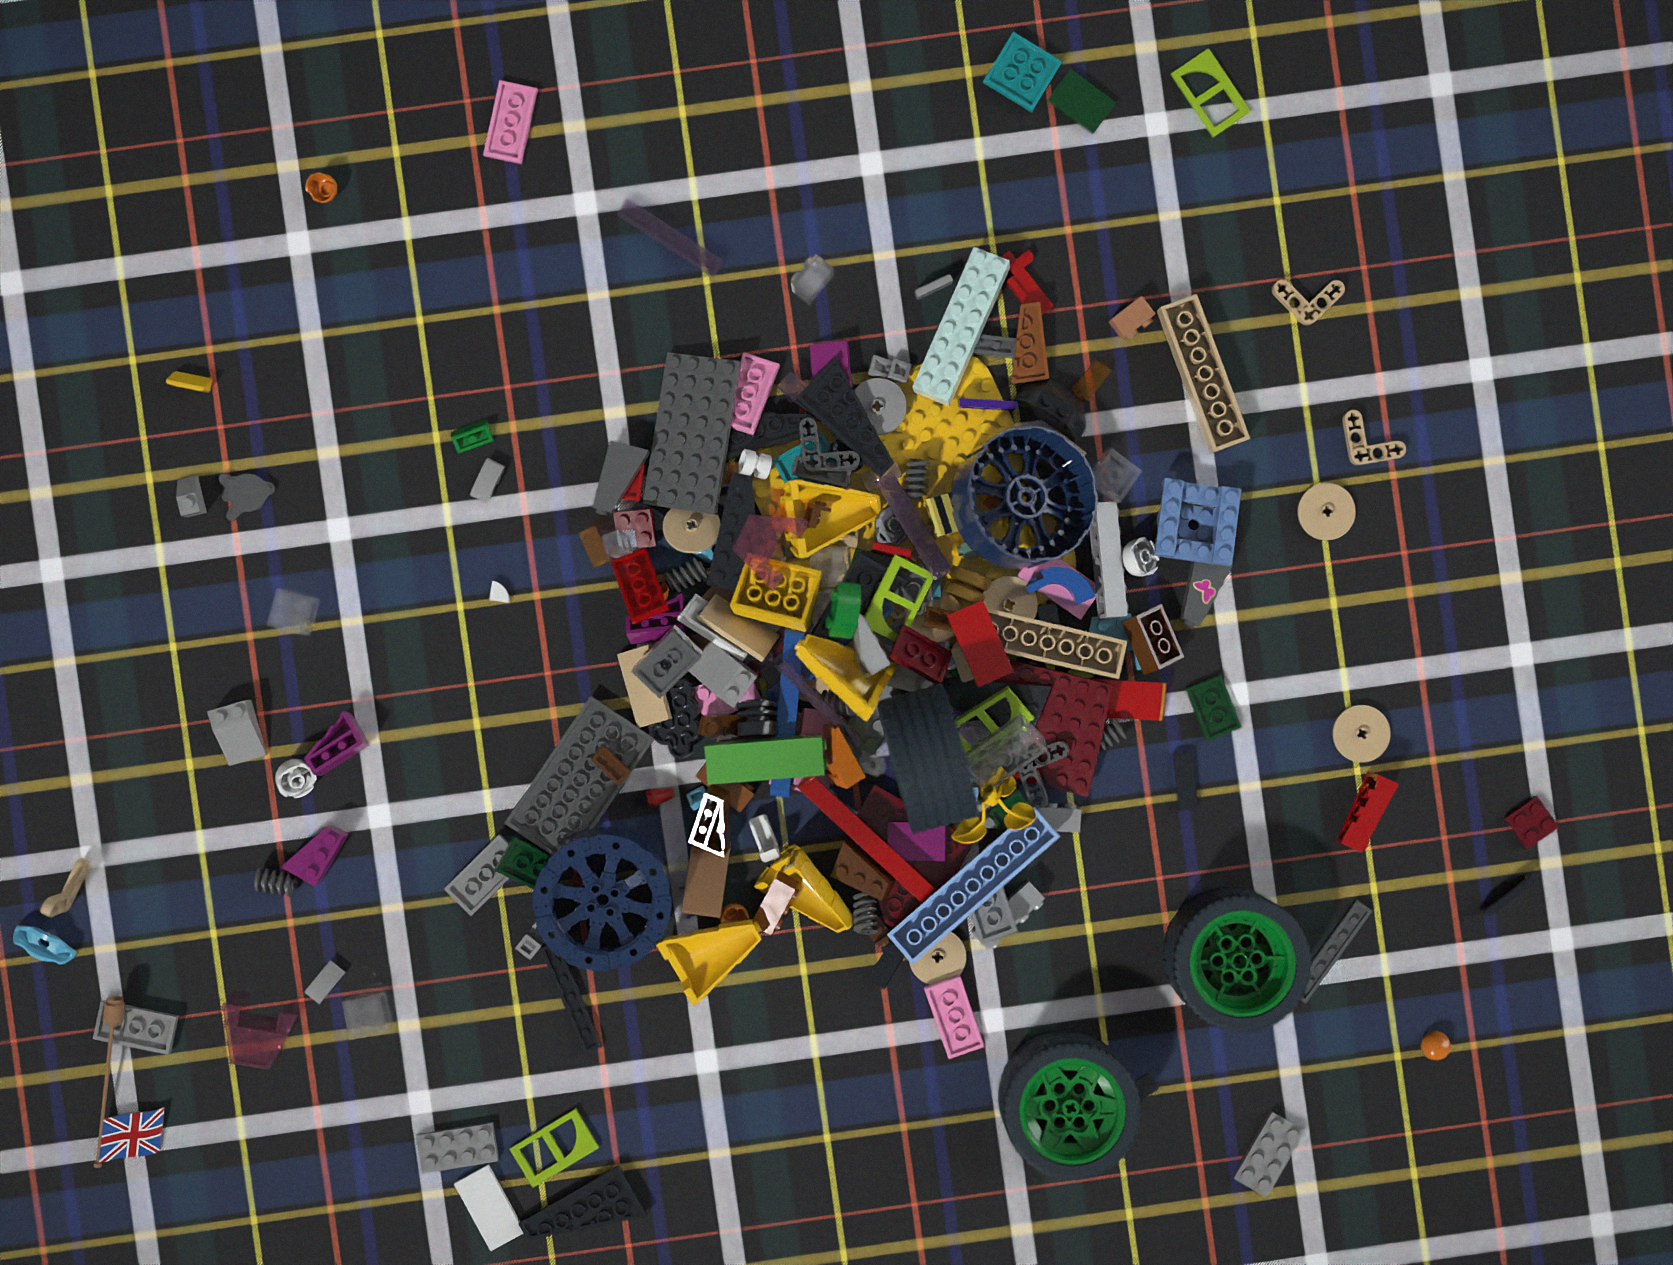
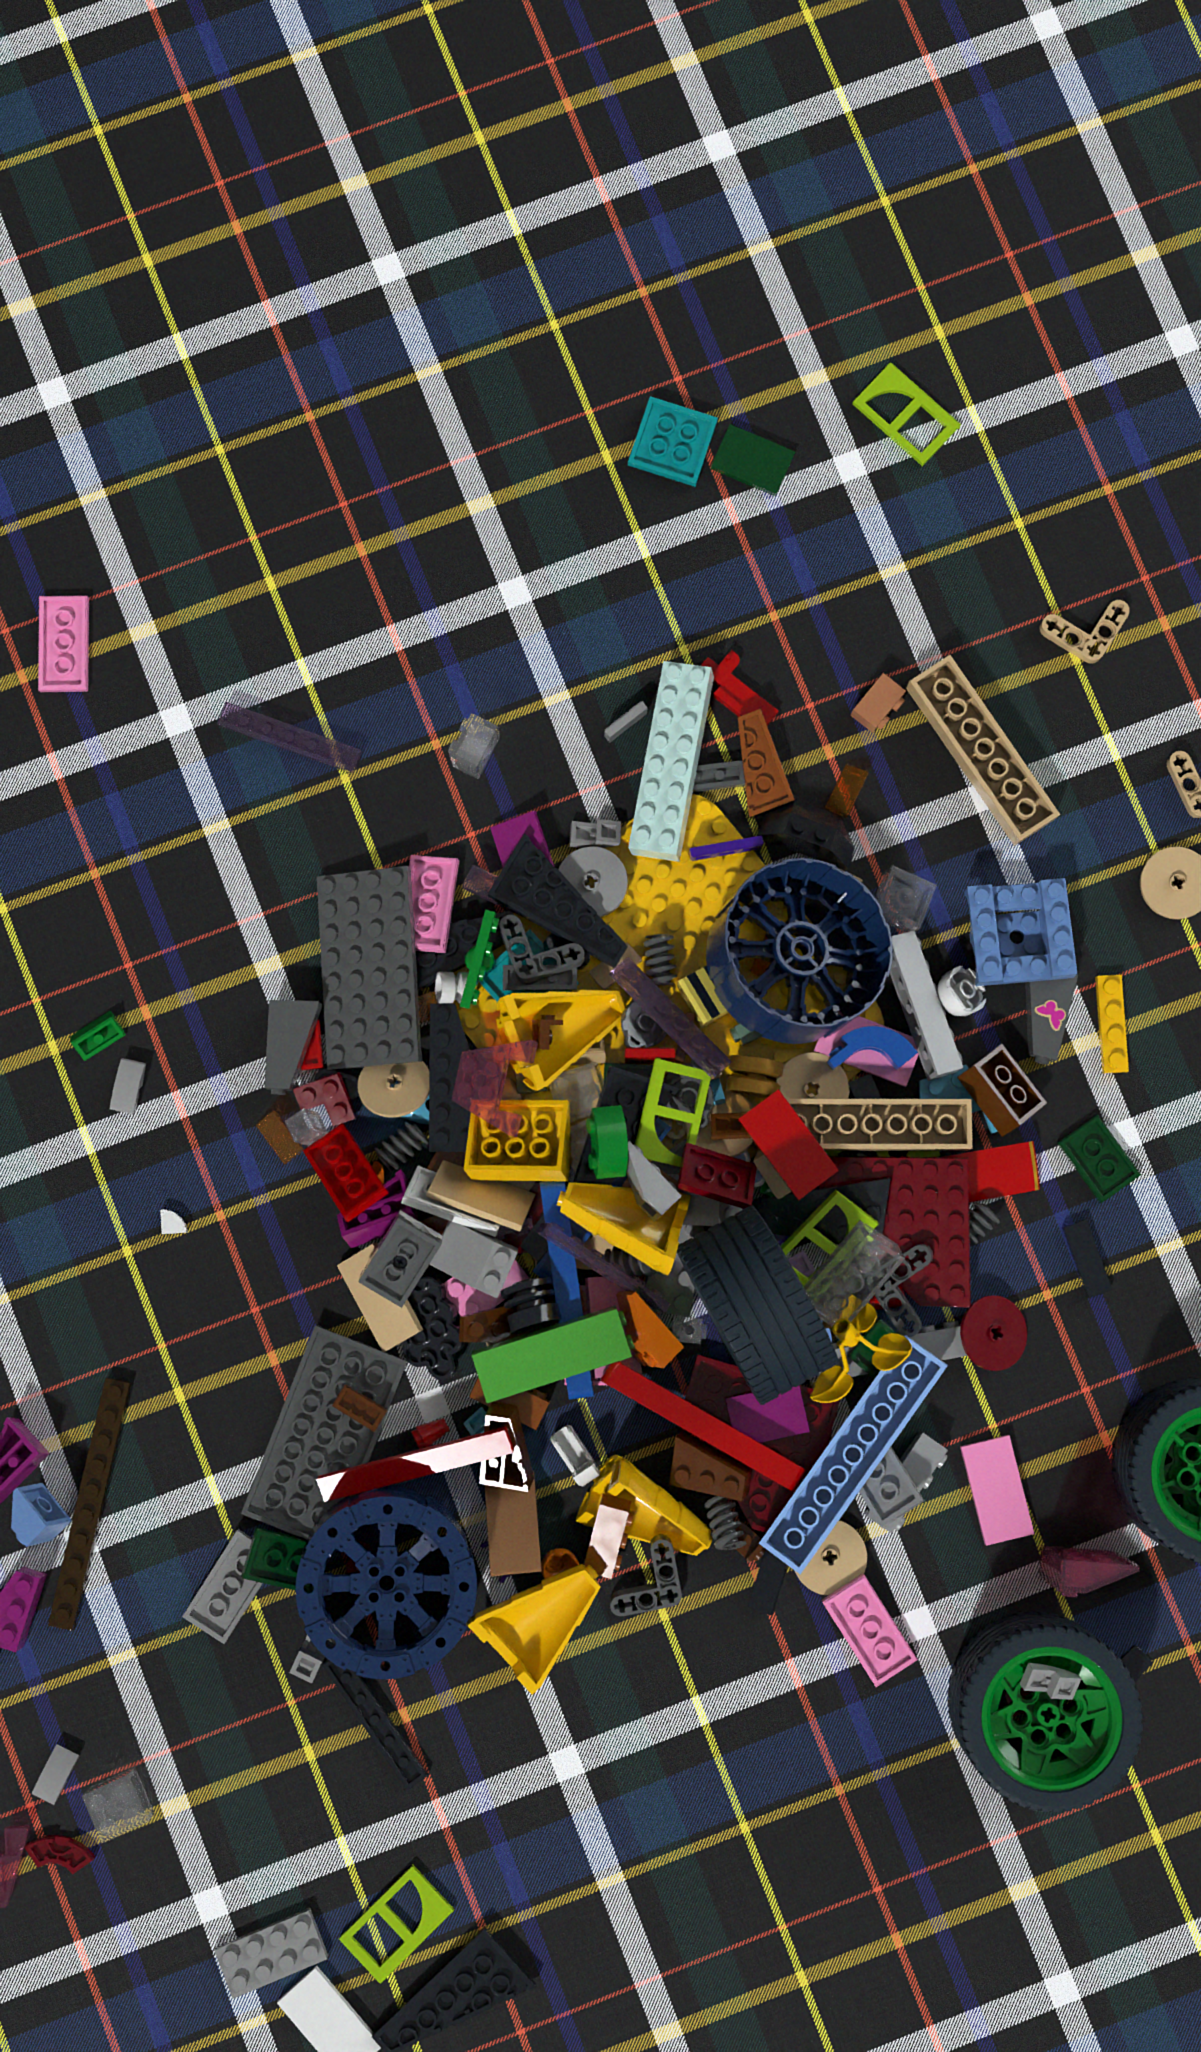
camera: 15 degrees left, 5 degrees down
(317, 1038) = (60, 1851): none -> dark red tile
(351, 788) = (36, 1515): none -> medium blue slope
(392, 789) = (89, 1504): none -> dark brown plate
(643, 817) = (415, 1464): none -> tile
(778, 447) = (479, 959): none -> green plate
(809, 947) = (663, 1584): none -> dark grey beam
(1074, 936) = (997, 1490): none -> bright pink tile
(1078, 1083) = (1050, 1679): none -> light grey slope
(1088, 823) = (978, 1340): none -> dark red piece
(1123, 1009) = (1082, 1569): none -> clear pink slope
(1249, 608) = (1111, 1024): none -> yellow plate

